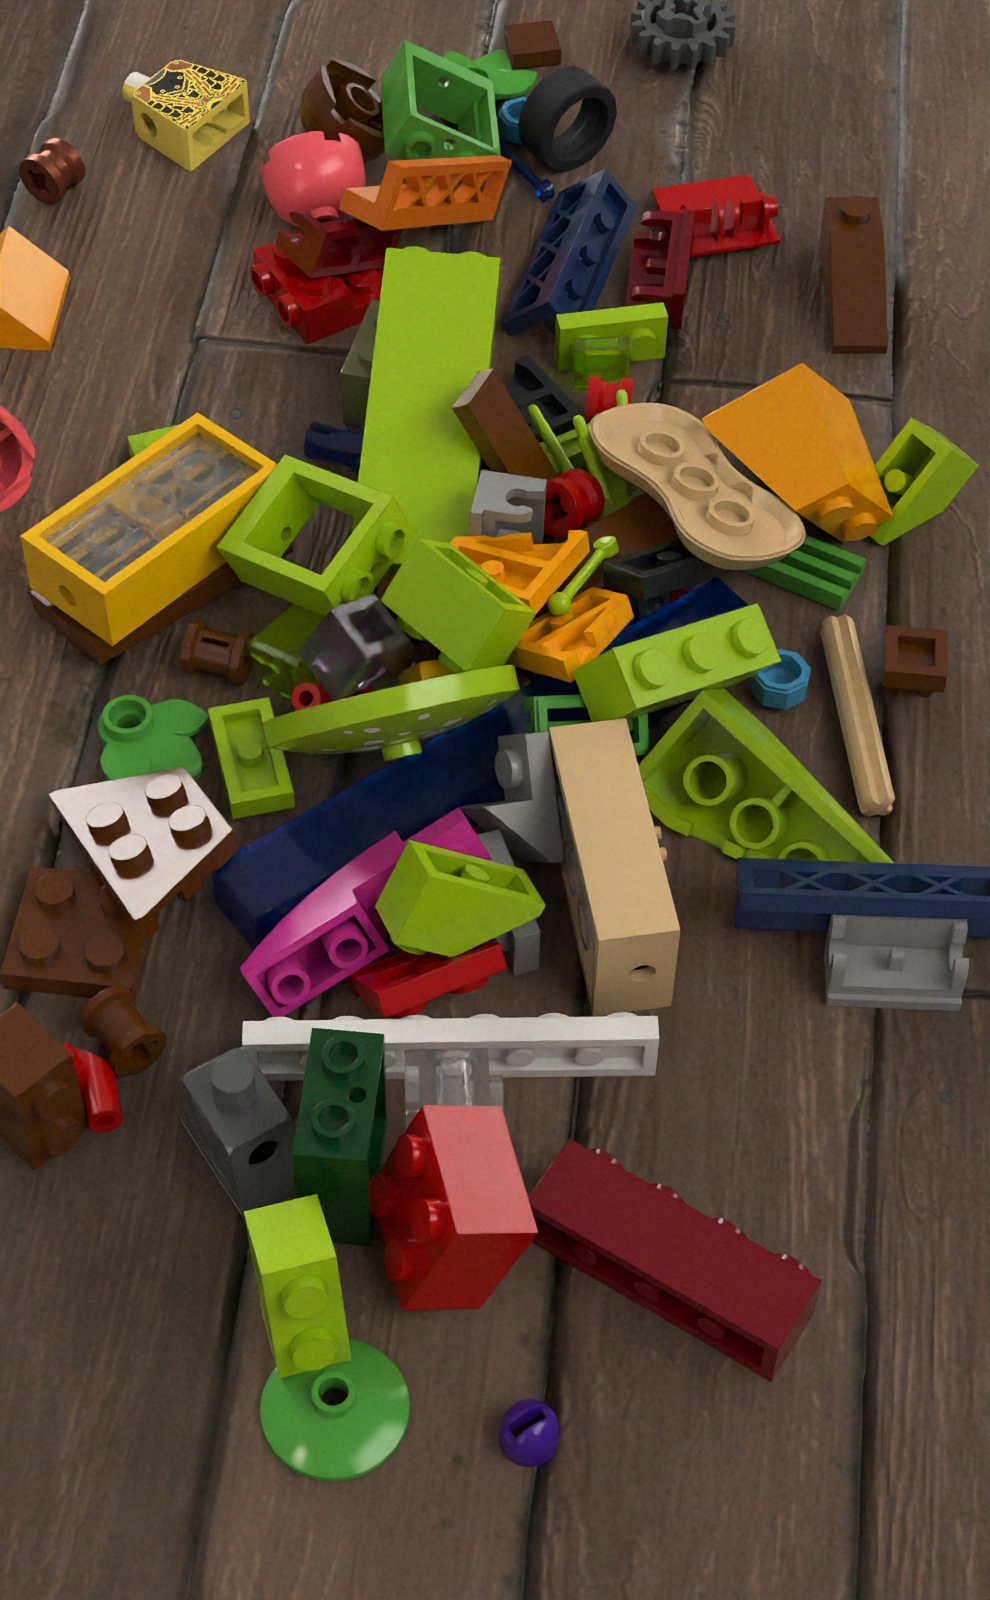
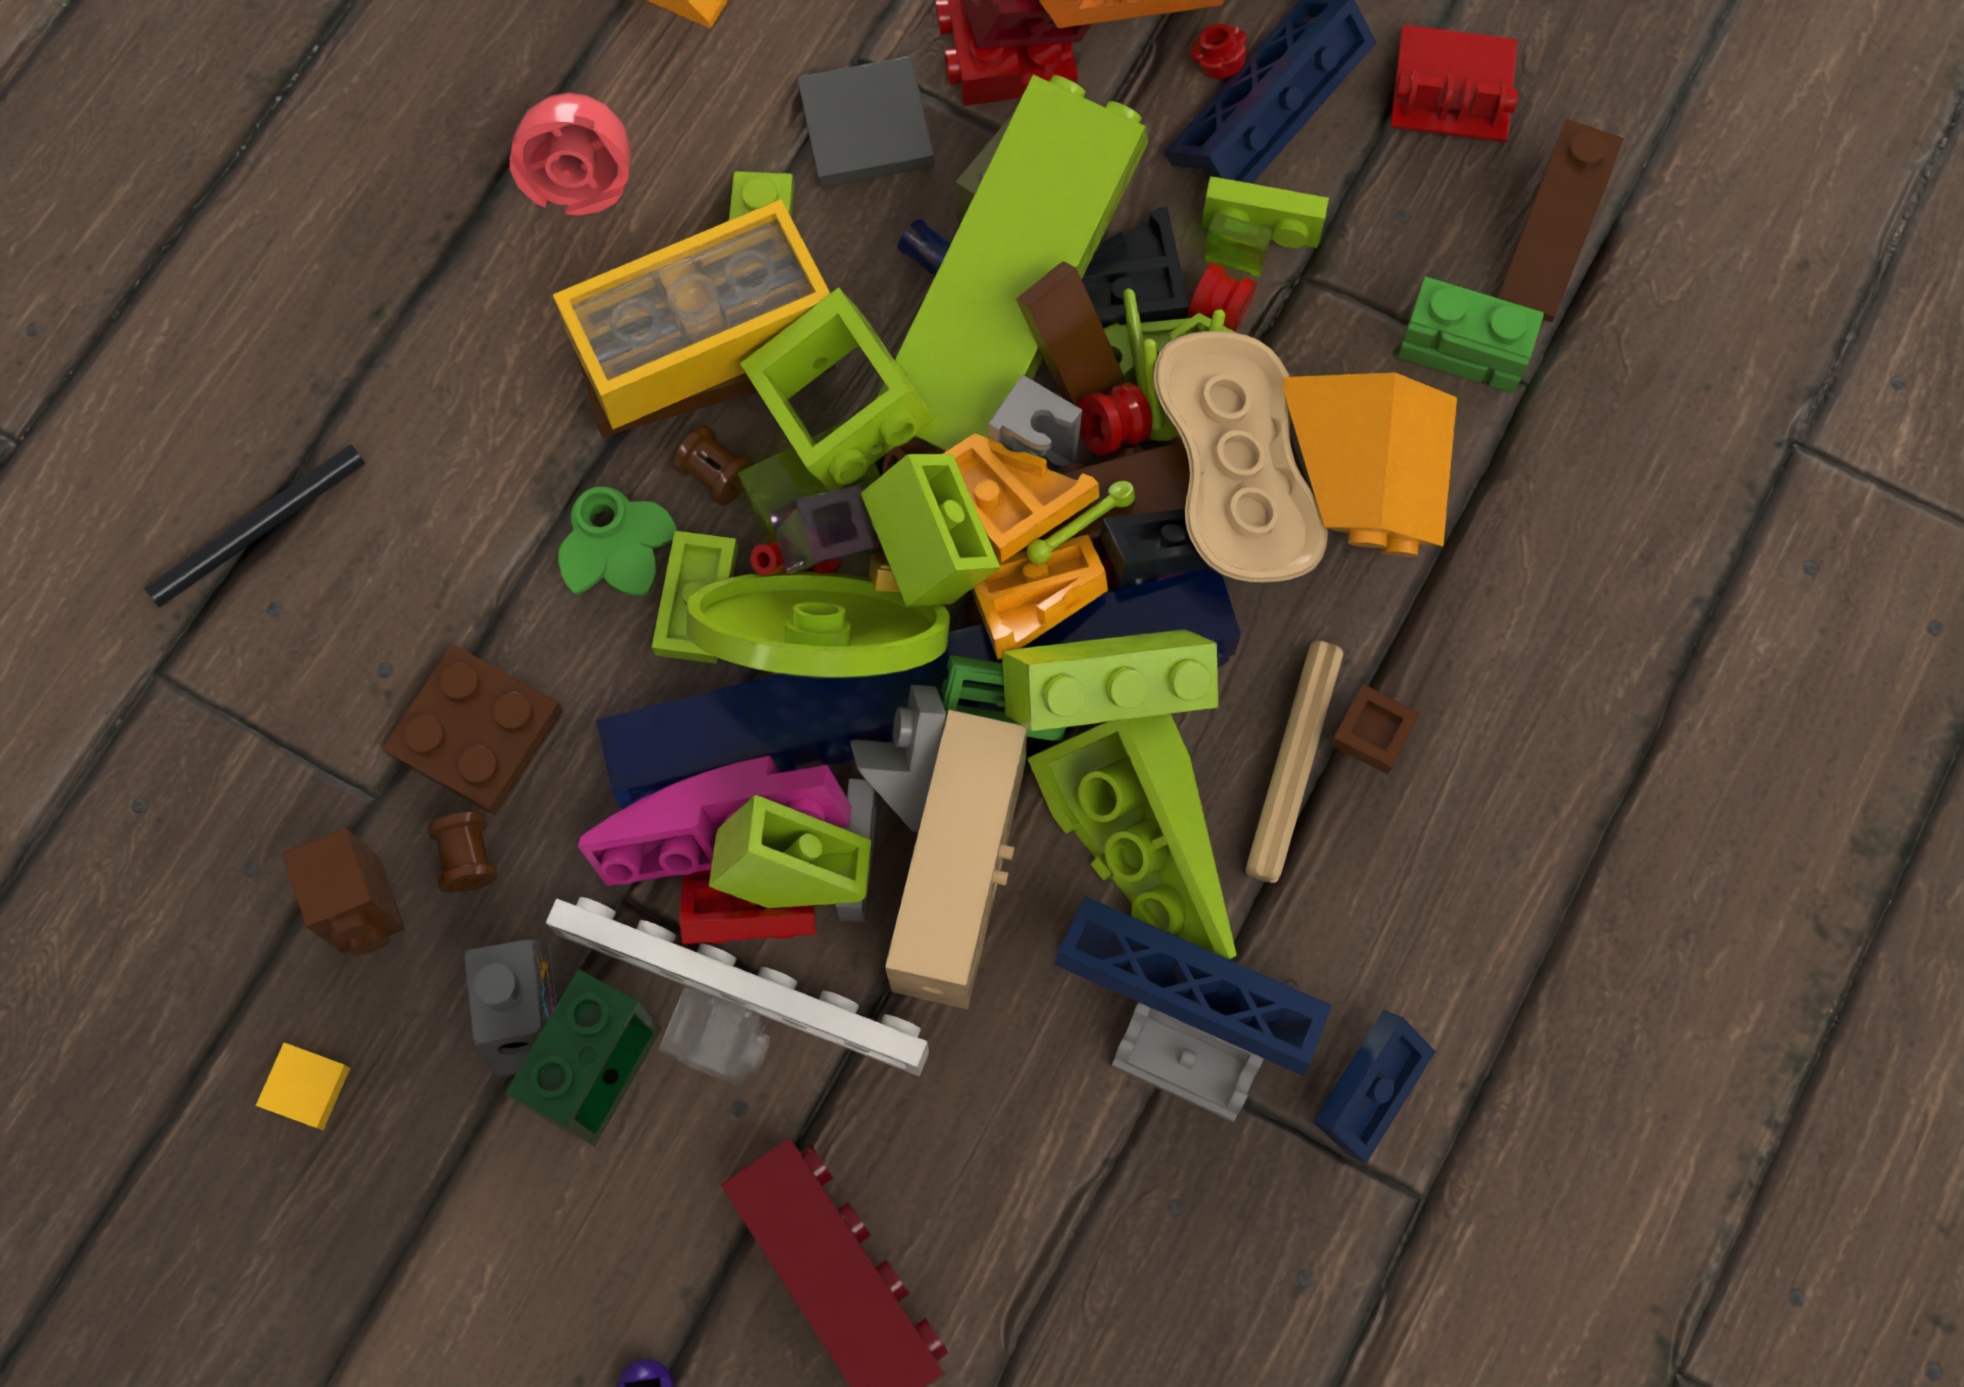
camera: 25 degrees right, 20 degrees up
(48, 1294) = (303, 1086): none -> yellow tile
(98, 1090) = (418, 886): red arm -> none
(147, 839) = (555, 665): wing -> none
(228, 372) = (865, 121): none -> dark grey tile
(298, 1285) = (487, 1191): lime brick -> none
(343, 1438) = (530, 1298): bright green dish -> none
(451, 1208) = (650, 1167): red brick -> none
(511, 242) = (1220, 51): none -> red plate
(662, 263) = (1356, 143): dark red hinge -> none
(782, 683) = (1241, 694): dark azure tile -> none
(820, 560) = (1363, 567): bright green tile -> none
(848, 358) = (1470, 334): none -> bright green brick
(919, 478) = (1494, 507): lime slope -> none

